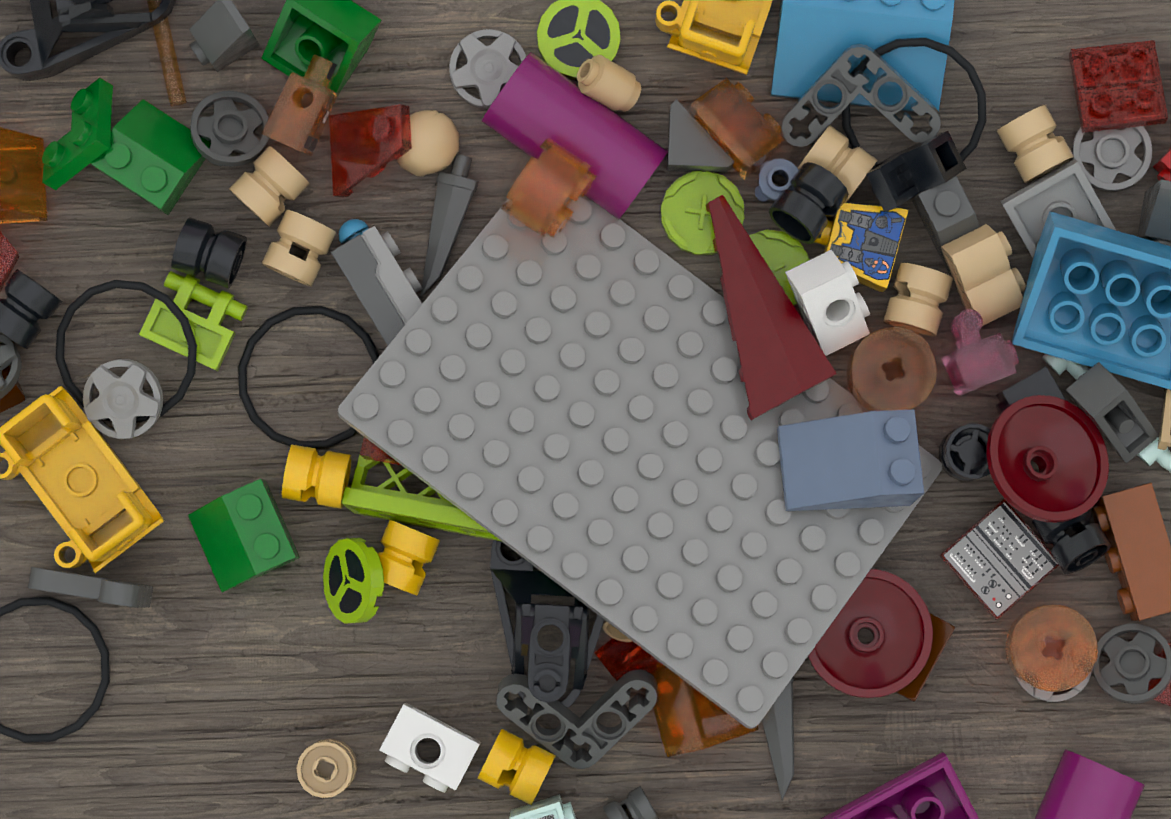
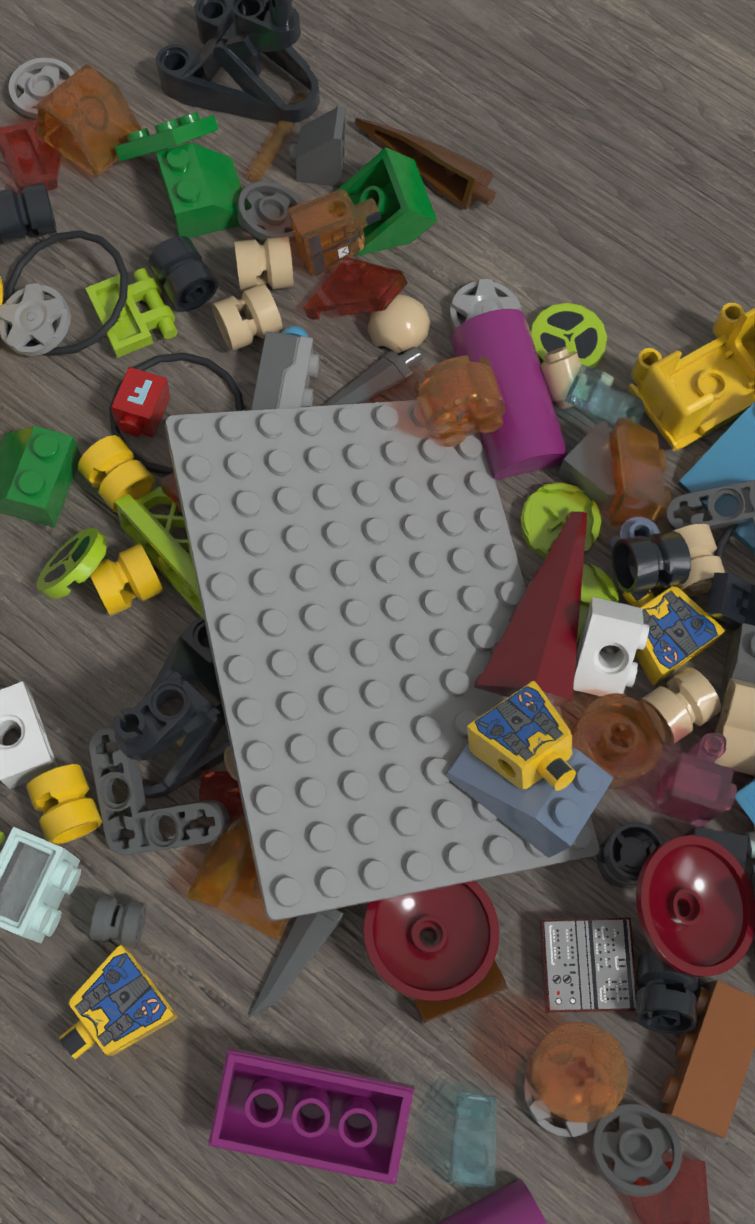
camera: 35 degrees right, 15 degrees down
(281, 400) = (140, 402): none -> red brick
(661, 83) = (593, 395): none -> clear light blue leg
(828, 440) = (524, 740): none -> torso
(1013, 751) = (473, 1141): none -> clear light blue leg

